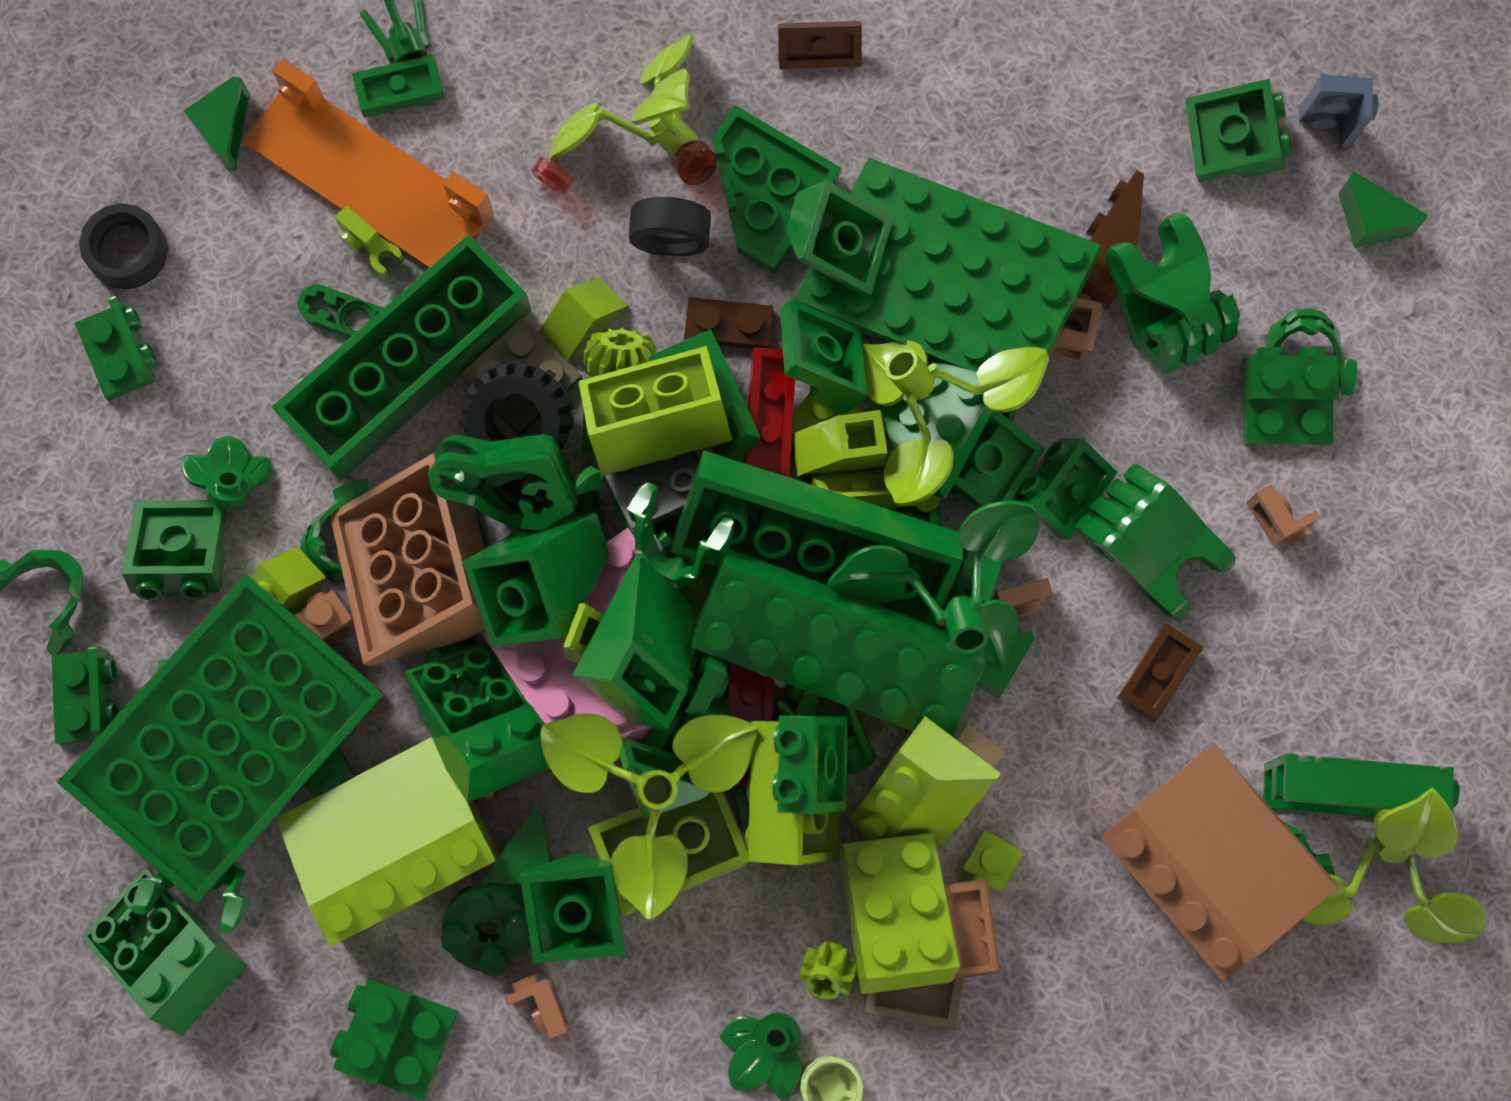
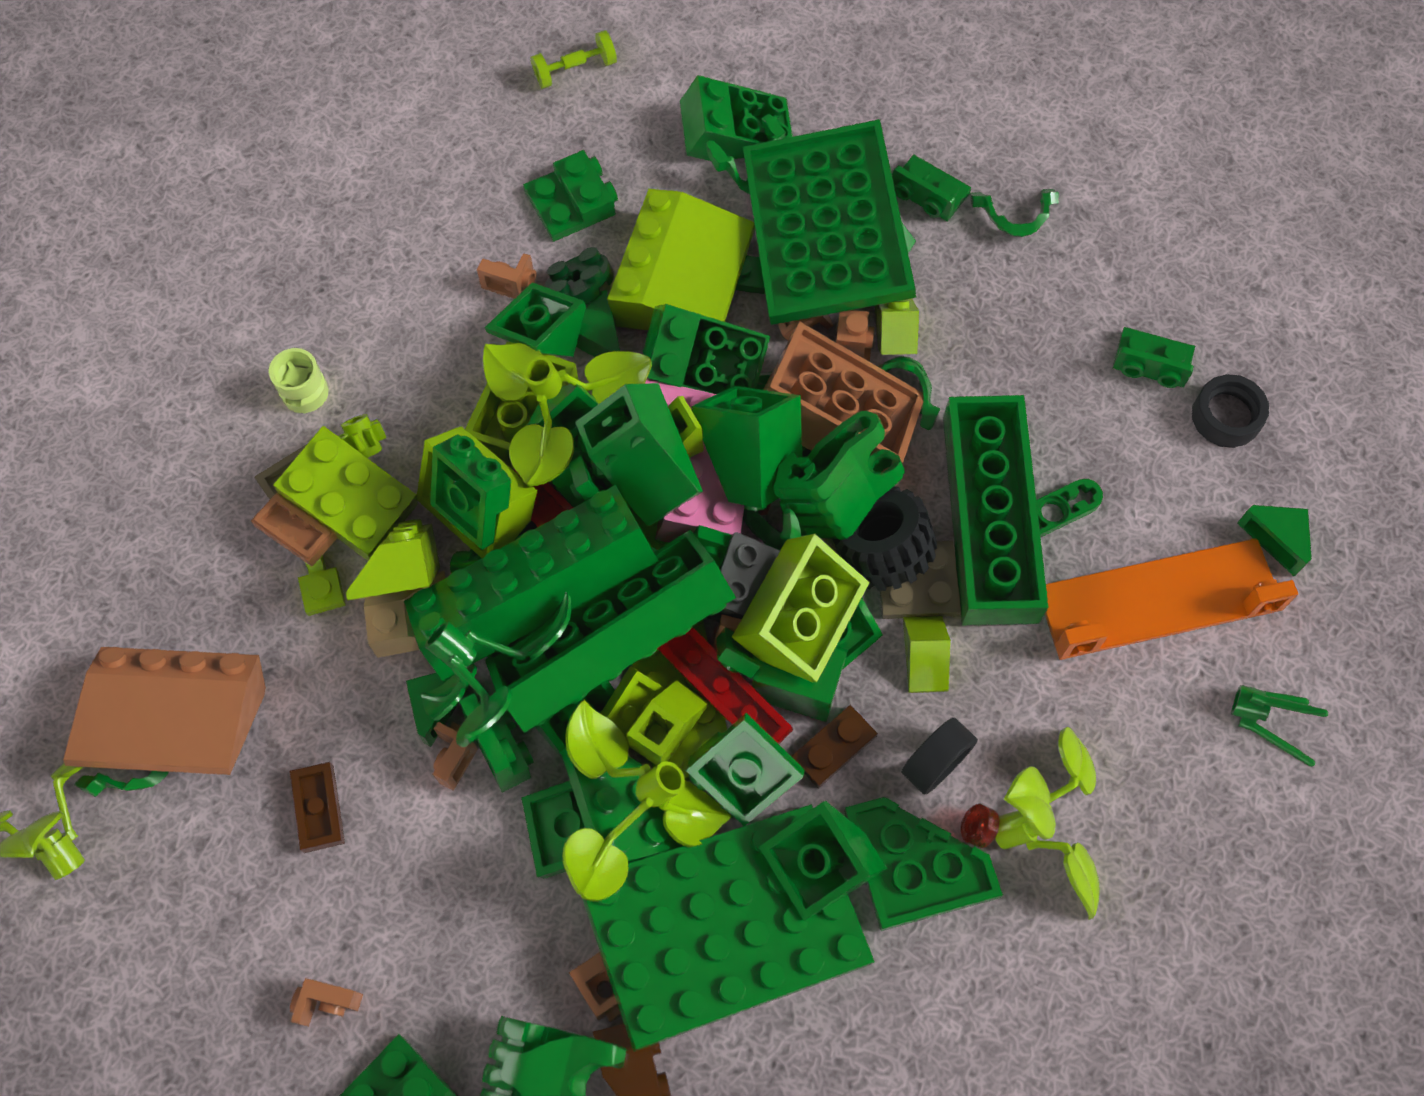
camera: 135 degrees right, 10 degrees down
(175, 549) = (979, 292): green plate -> none
(226, 472) = (1013, 358): green plate -> none
(360, 235) = (1110, 556): lime plate -> none
(398, 86) = (1219, 673): green plate -> none
(552, 175) = (1054, 717): clear red tile -> none
(616, 351) = (870, 641): lime gear -> none
(673, 569) = (697, 522): green helmet -> none
(760, 1059) = (359, 371): green plate -> none
(820, 44) = (1002, 1009): reddish brown plate -> none
(1066, 485) = (498, 866): green bracket -> none
(1151, 535) = (403, 879): green piece -> none
(1352, 784) = (102, 853): green door -> none

